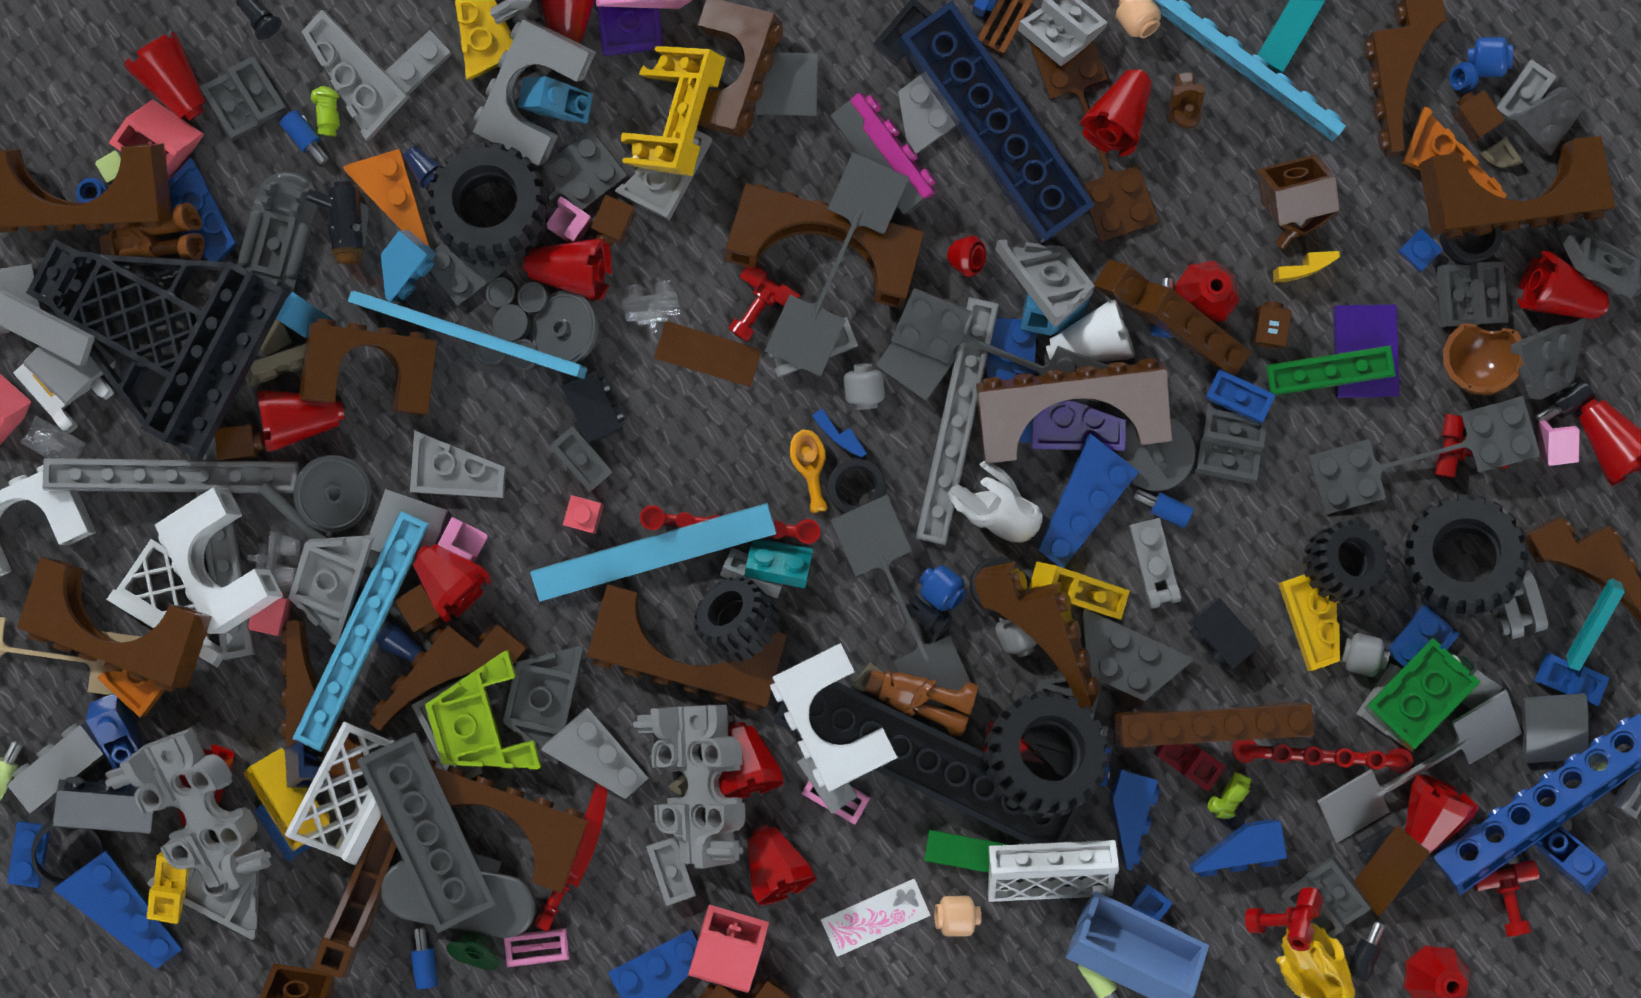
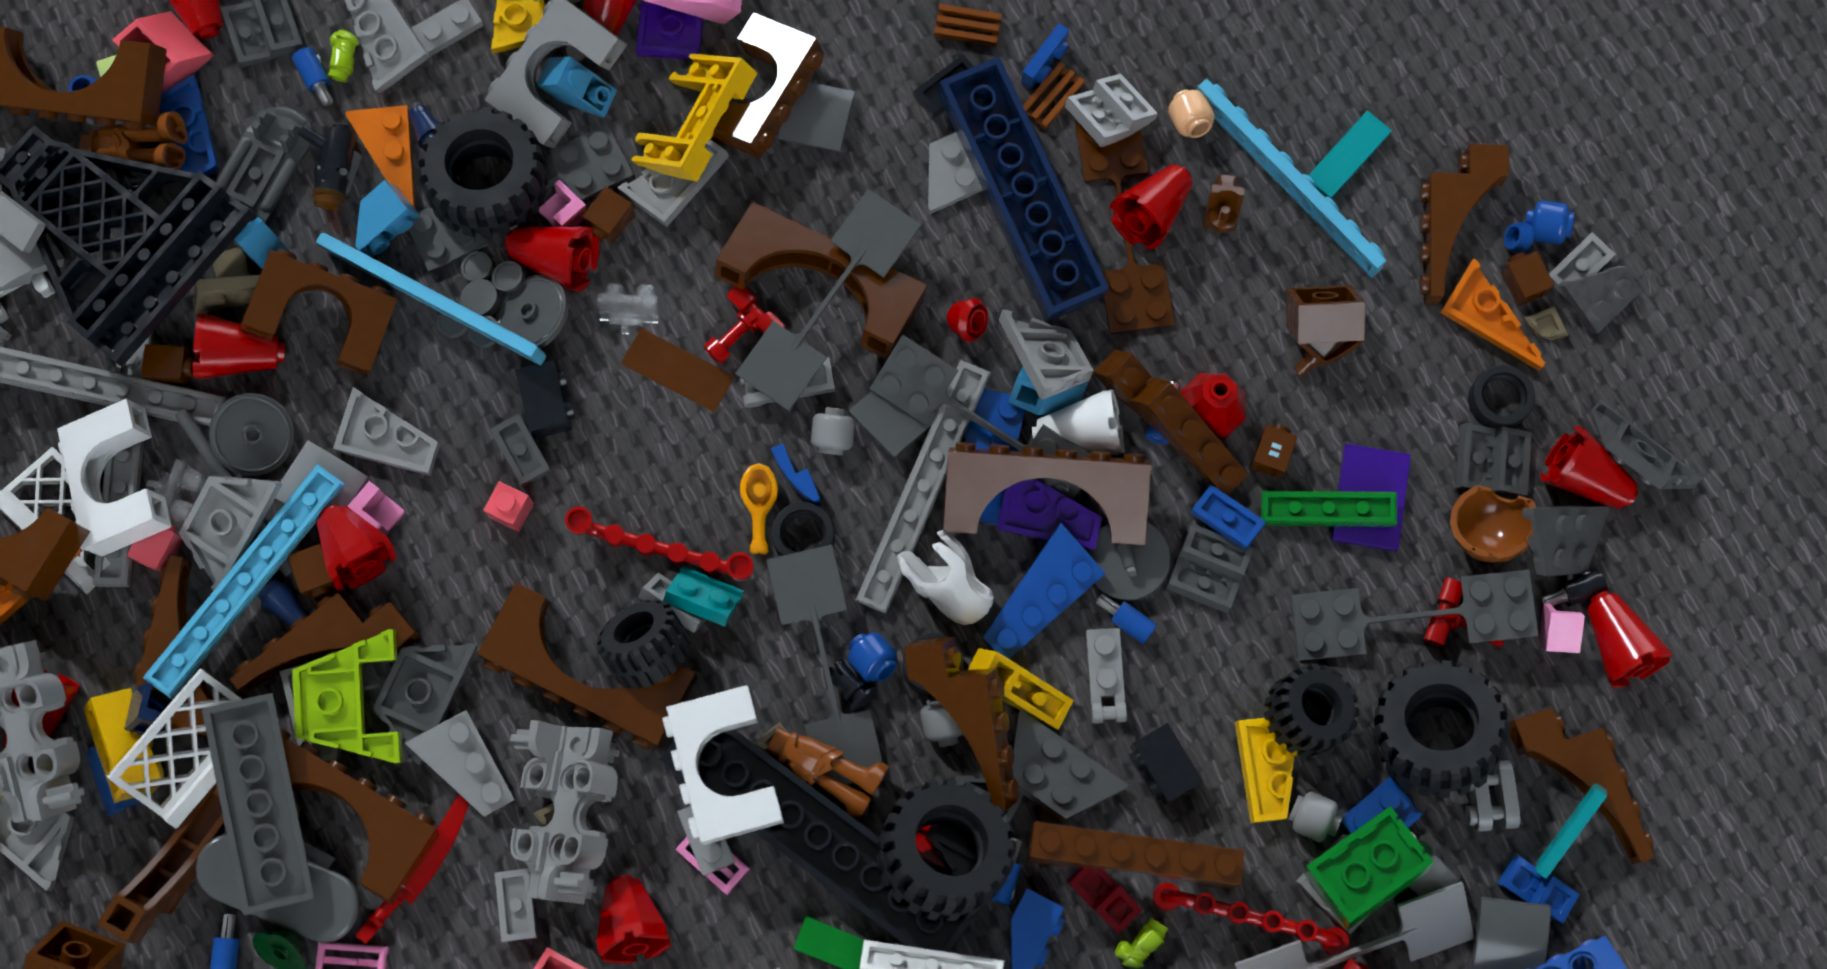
camera: 10 degrees right, 10 degrees down
(653, 552) = (573, 559): medium azure tile -> none
(759, 767) = (629, 811): red cone -> none
(878, 141) = (898, 184): piece -> none
(1312, 263) = (1330, 395): yellow slope -> none
(1420, 250) = (1445, 404): blue plate -> none
(1462, 205) = (1495, 361): reddish brown arch -> none

